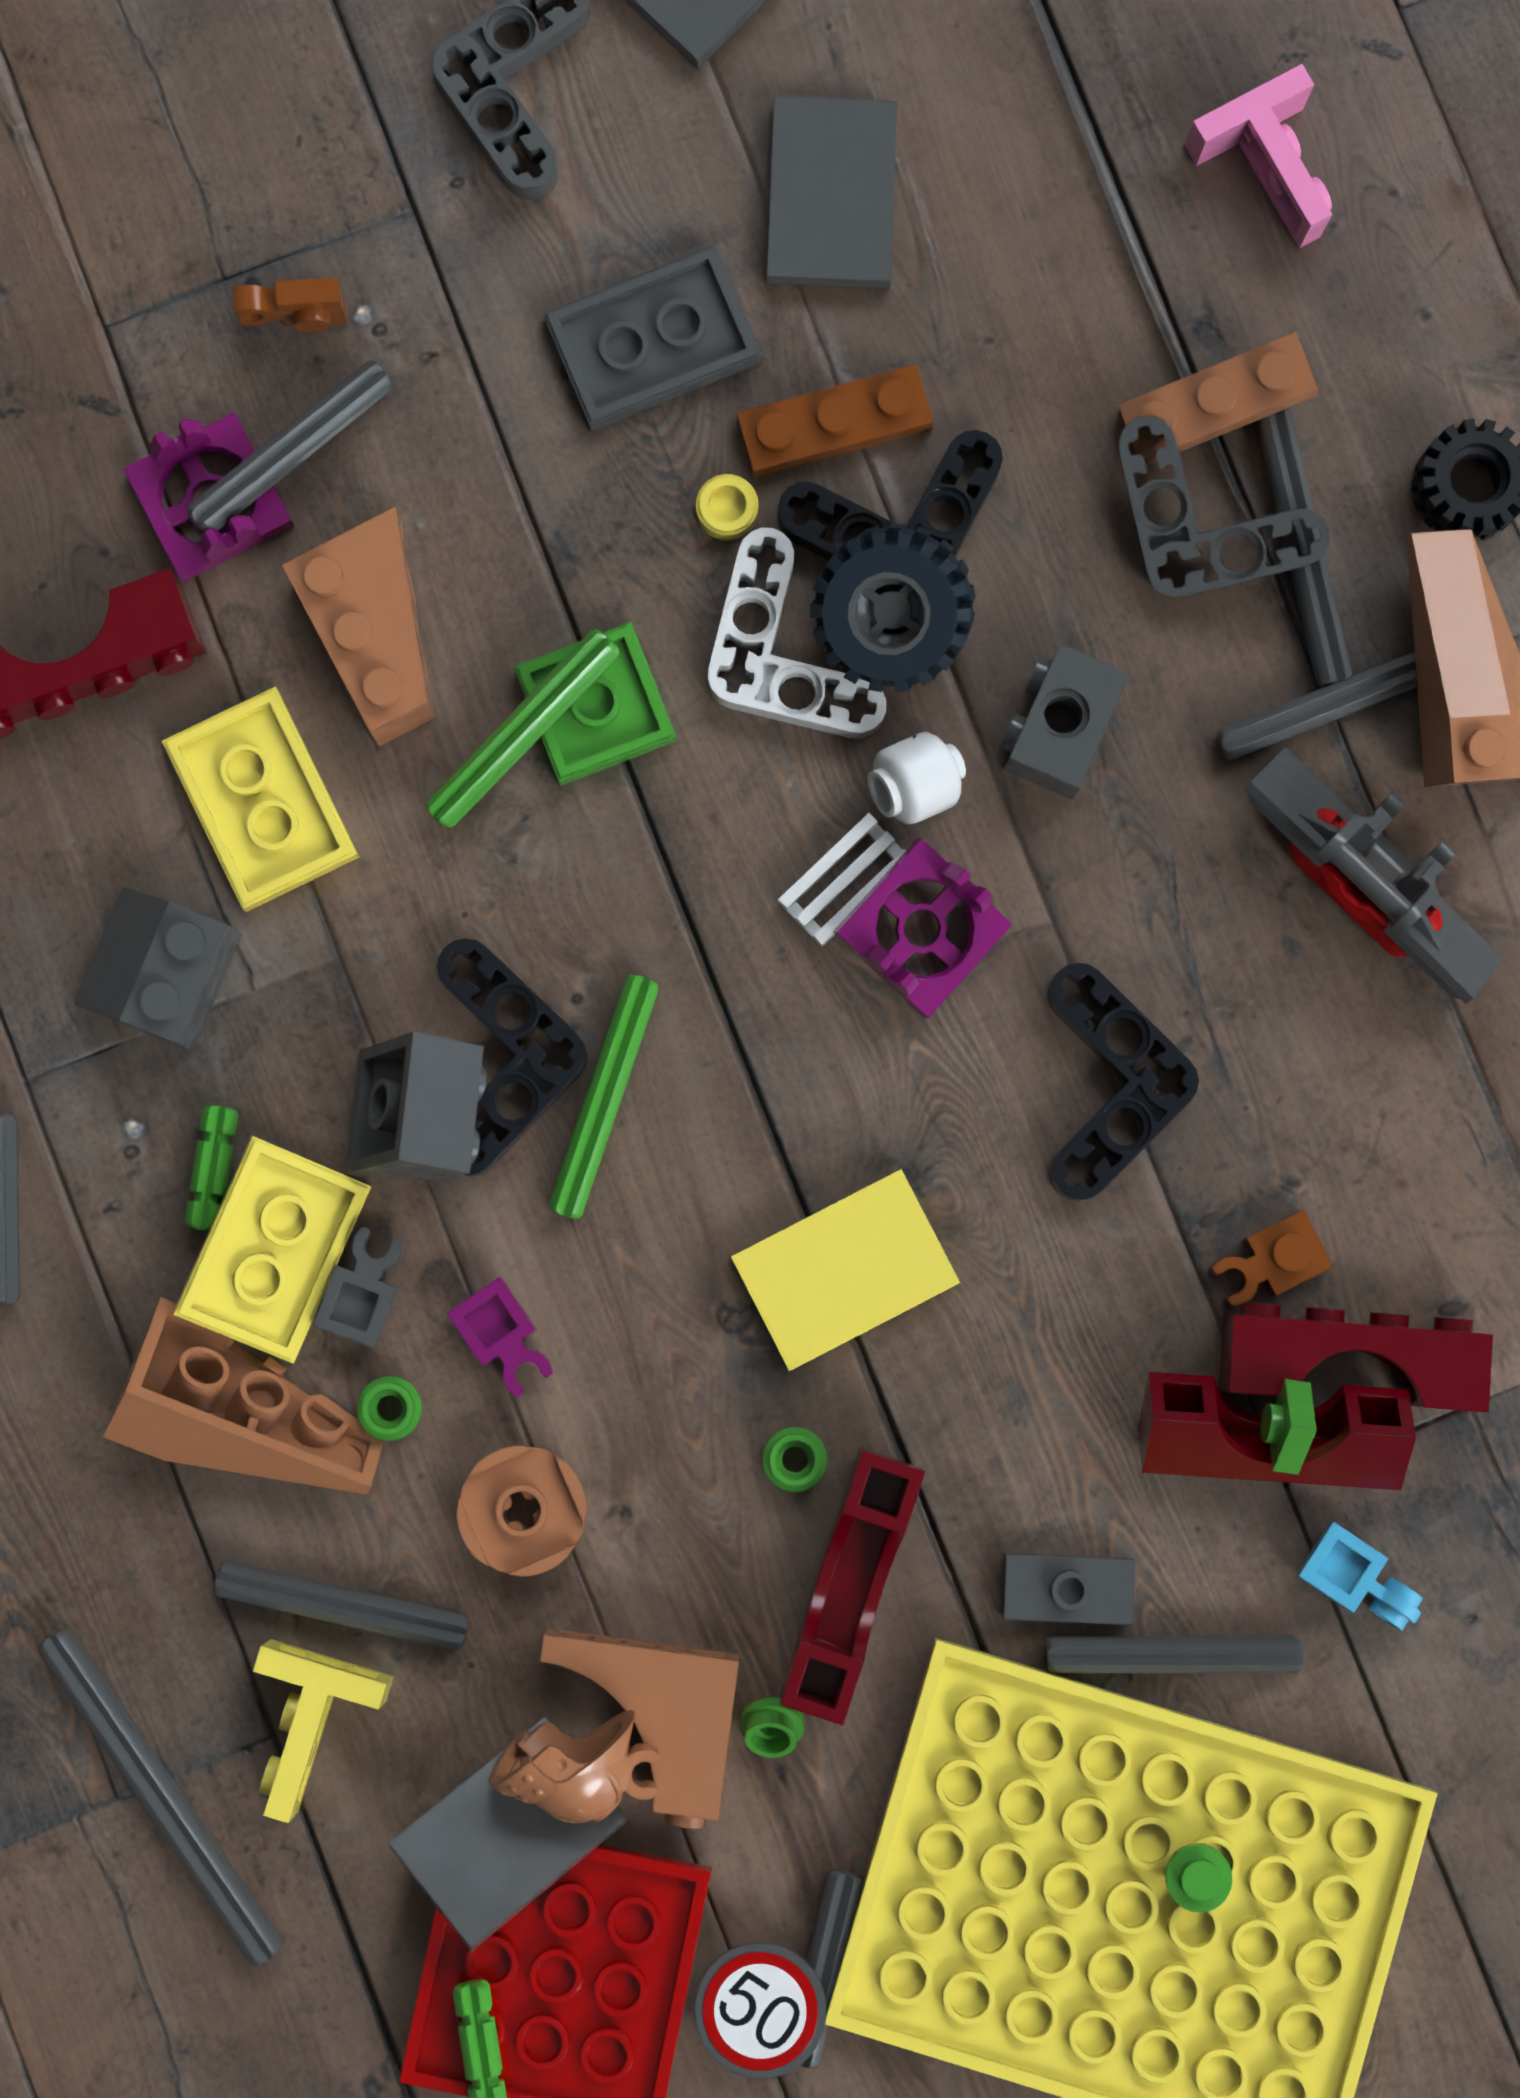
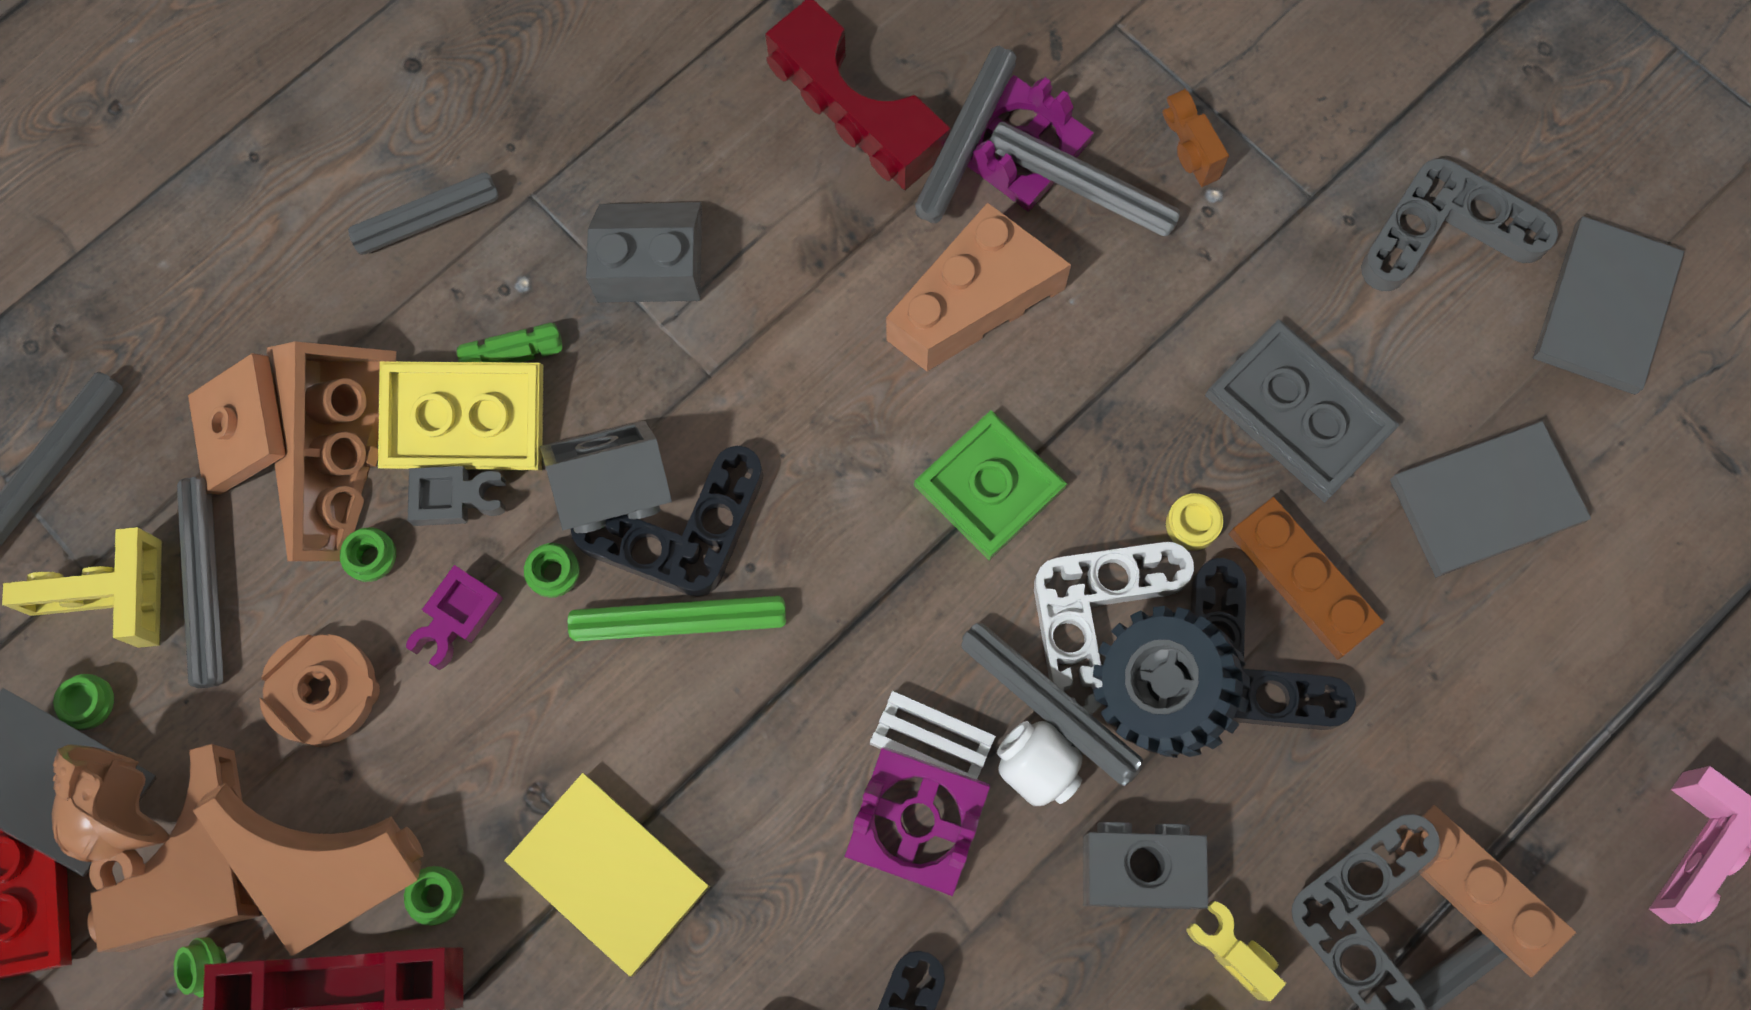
camera: 75 degrees right, 10 degrees down
(178, 553) = (965, 135): none -> dark grey axle
(178, 1502) = (236, 424): none -> nougat plate
(260, 799) = (808, 271): light yellow tile -> none
(427, 1773) = (84, 701): none -> bright green plate
(472, 1212) = (540, 559): none -> bright green plate
(522, 728) = (944, 434): bright green axle -> none
(733, 1571) = (307, 879): none -> nougat arch
(860, 739) = (1052, 704): none -> dark grey axle
(1196, 661) = (1247, 963): none -> light yellow plate

